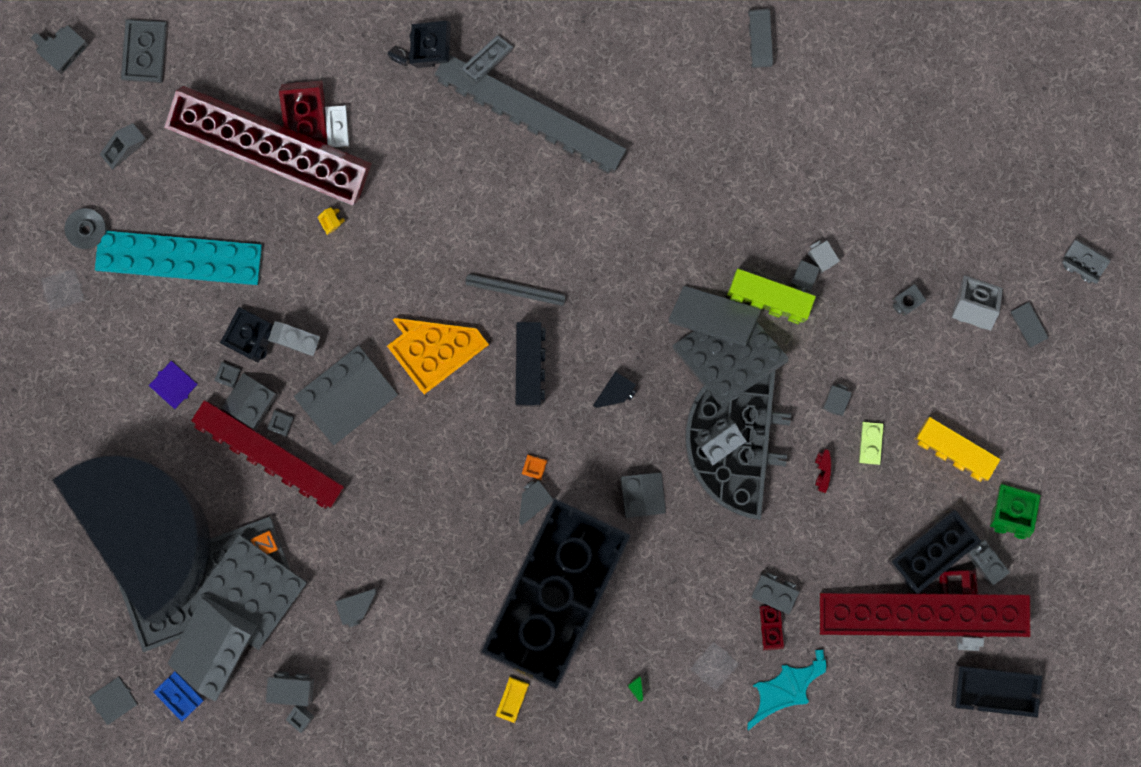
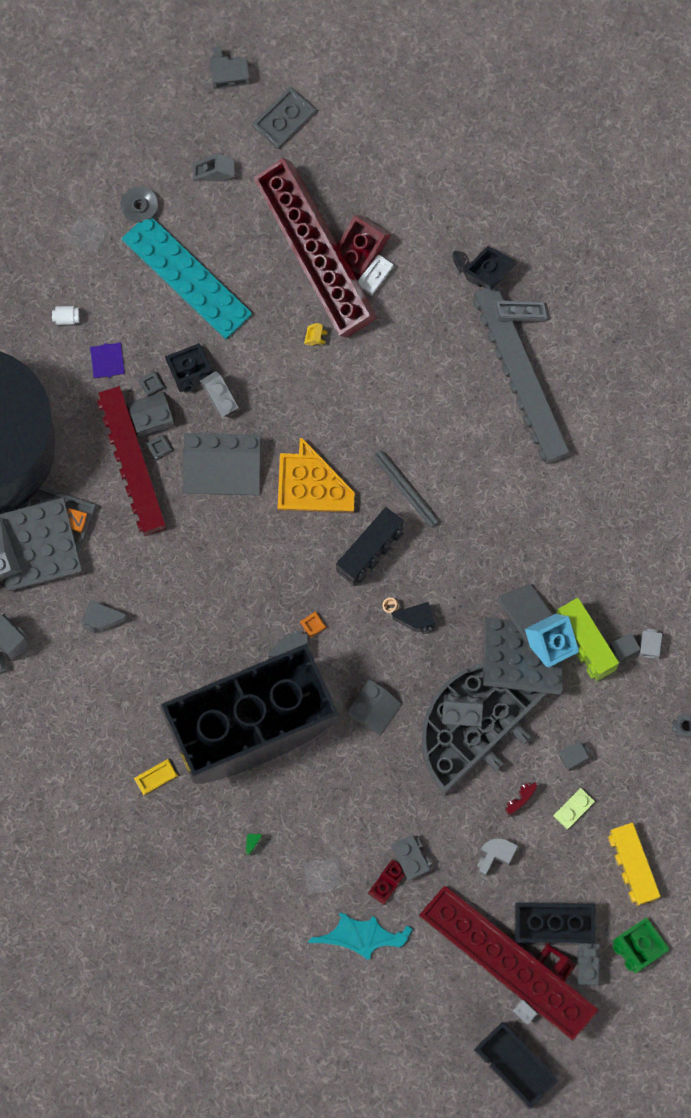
camera: 45 degrees right, 10 degrees down
(105, 375) = (65, 315): none -> white brick
(582, 395) = (390, 601): none -> light nougat hinge
(746, 321) = (552, 639): none -> medium azure slope
(836, 530) = (496, 849): none -> light grey brick

